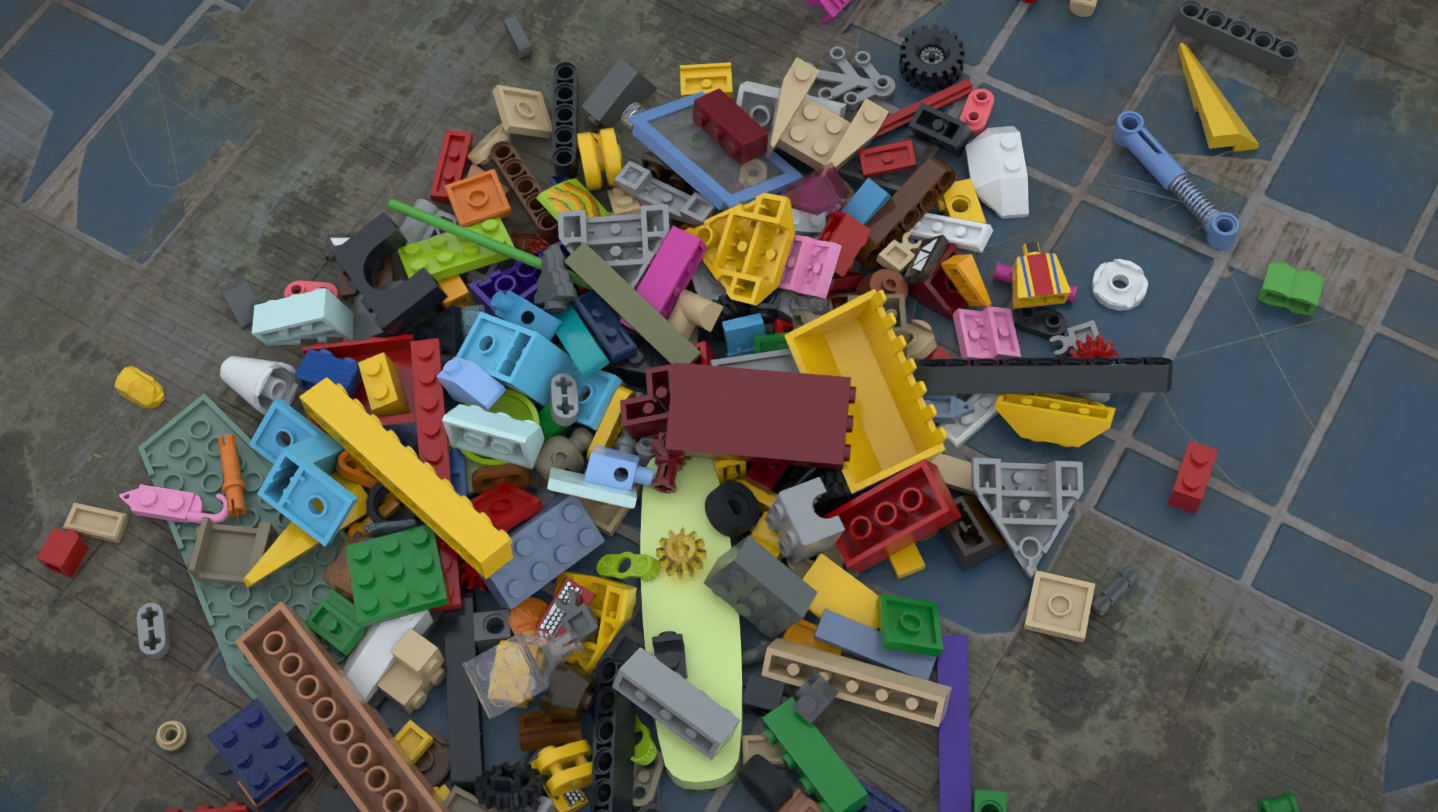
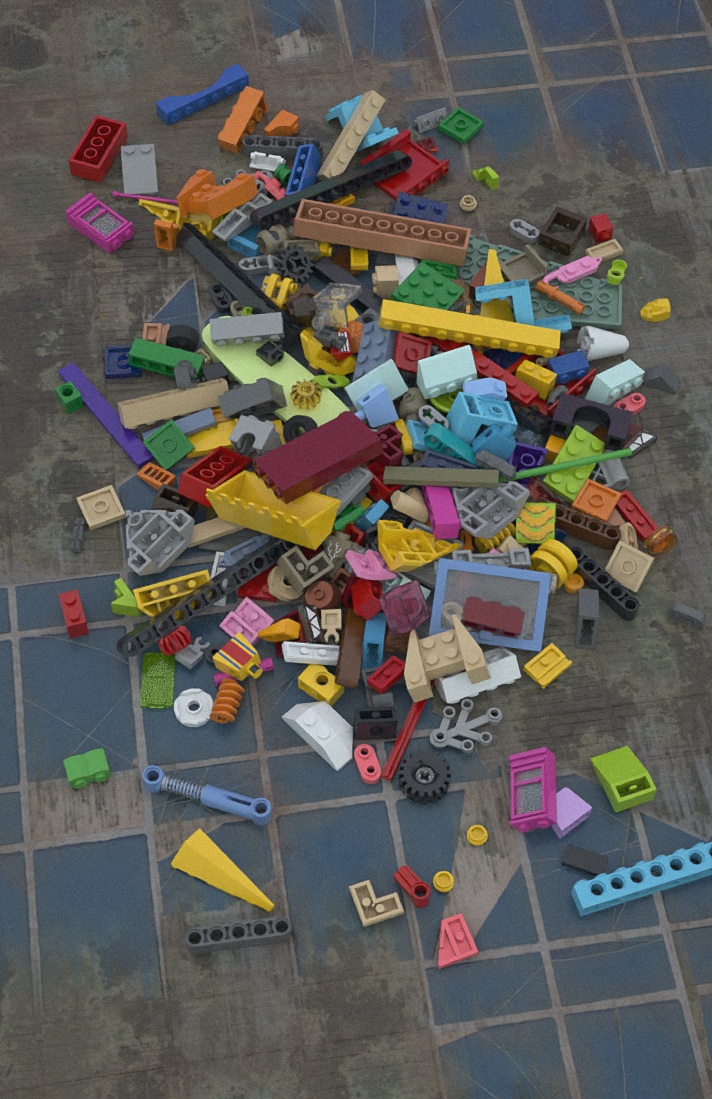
camera: 135 degrees right, 5 degrees down
(95, 615) = (566, 219): none -> dark brown window
(96, 759) = (488, 176): none -> lime slope
(112, 482) = (618, 267): none -> lime piece
(301, 570) = (477, 281): none -> copper slope
(392, 352) = (556, 392): none -> dark grey arm
(460, 115) = (661, 540): none -> clear orange piece
(950, 577) = (170, 479): none -> orange slope
(1084, 253) = (226, 701): none -> orange piece
(1116, 450) = (125, 600): none -> lime slope
(1145, 333) = (157, 680): none -> clear neon green piece

